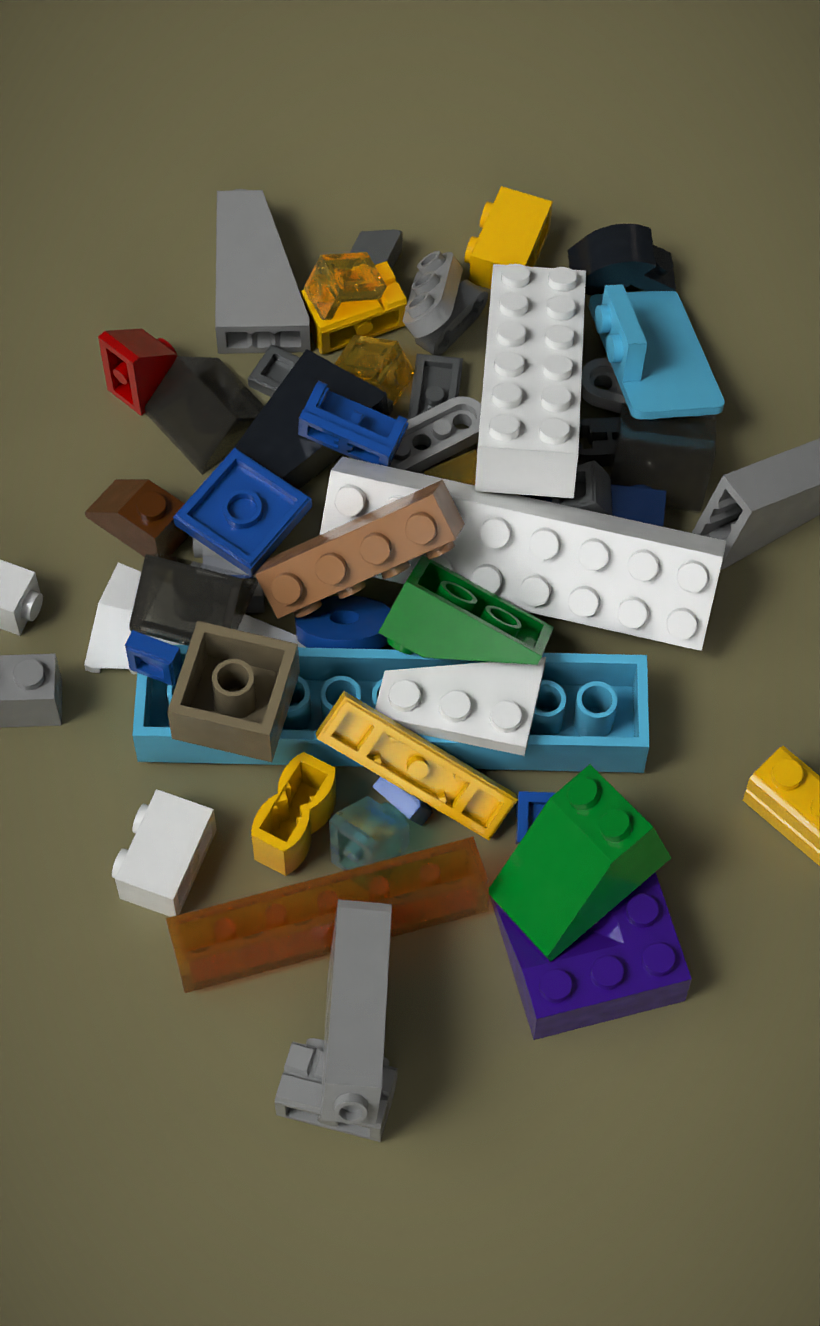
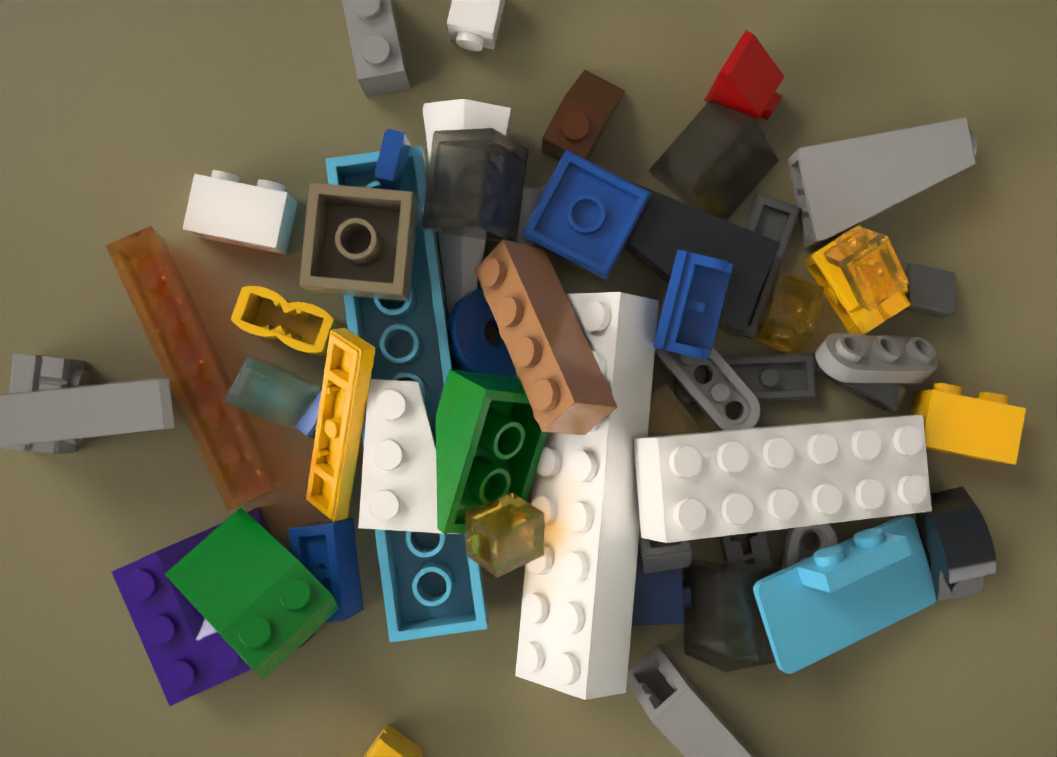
camera: 80 degrees right, 25 degrees up
(552, 613) = (504, 534): none -> clear yellow brick

